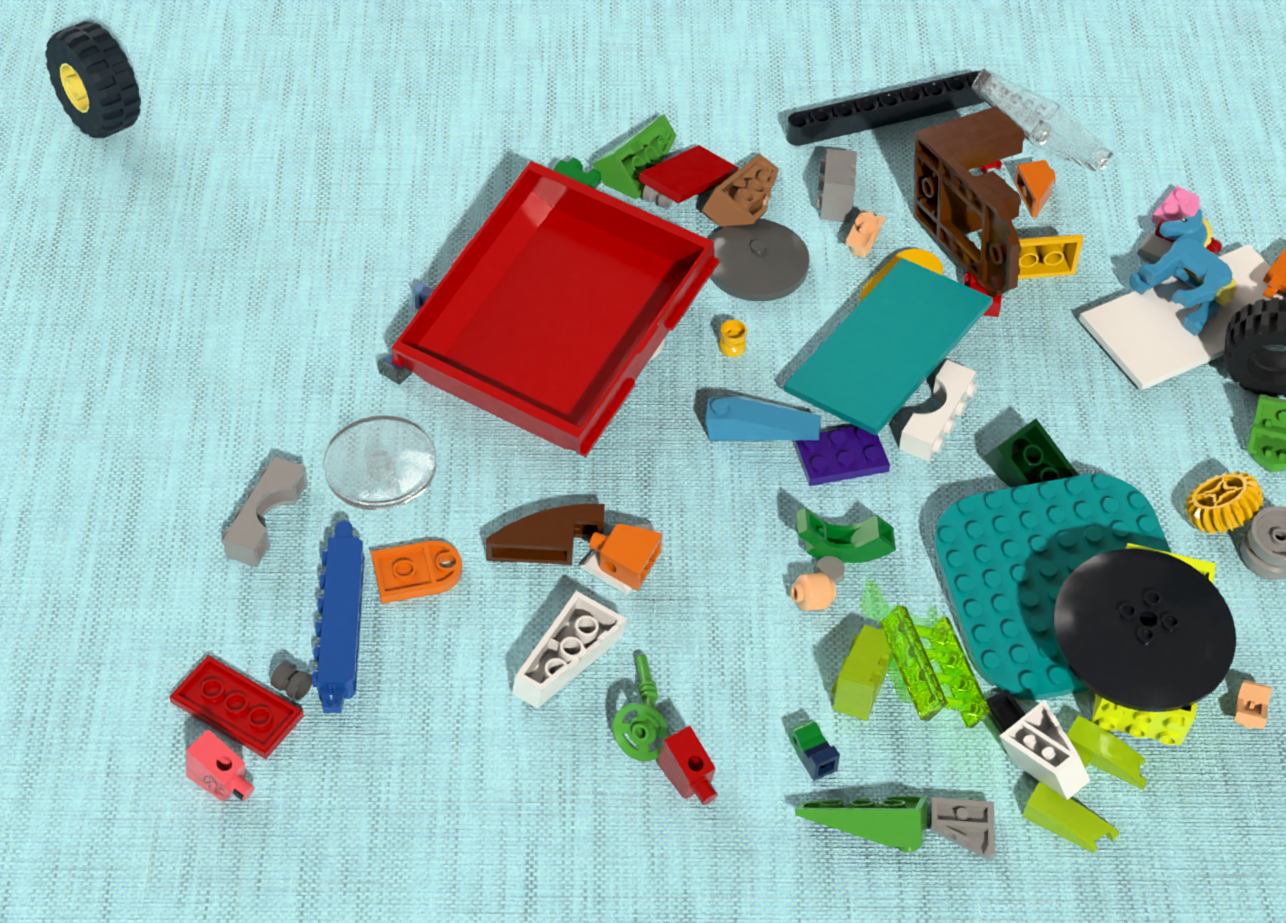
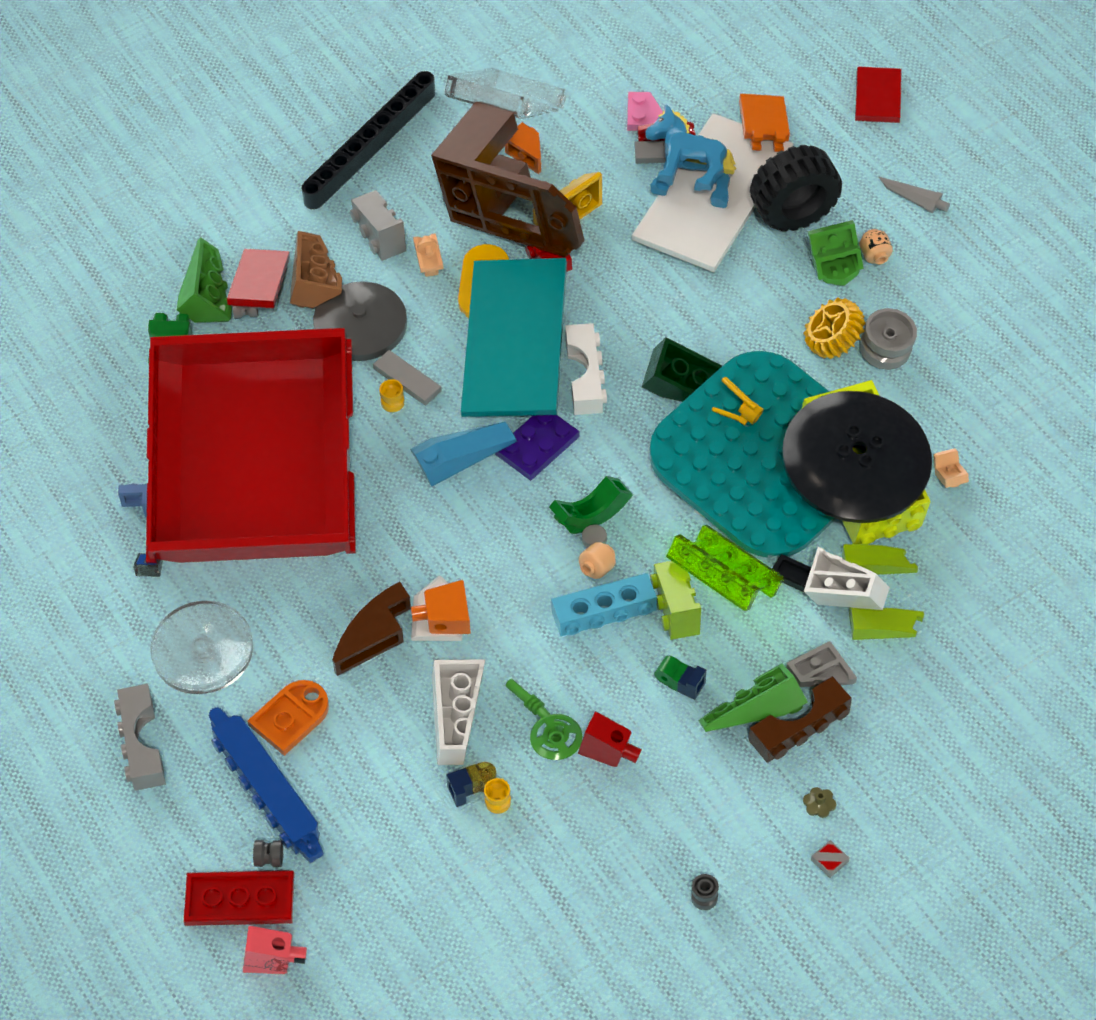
camera: 30 degrees left, 5 degrees up
(531, 727) = (469, 781): none -> leg
(544, 755) = (500, 790): none -> yellow wheel
(762, 331) = (412, 380): none -> light grey tile
(767, 633) = (613, 594): none -> medium azure brick
(866, 864) = (776, 736): none -> reddish brown arch
(1070, 529) = (749, 410): none -> yellow plant

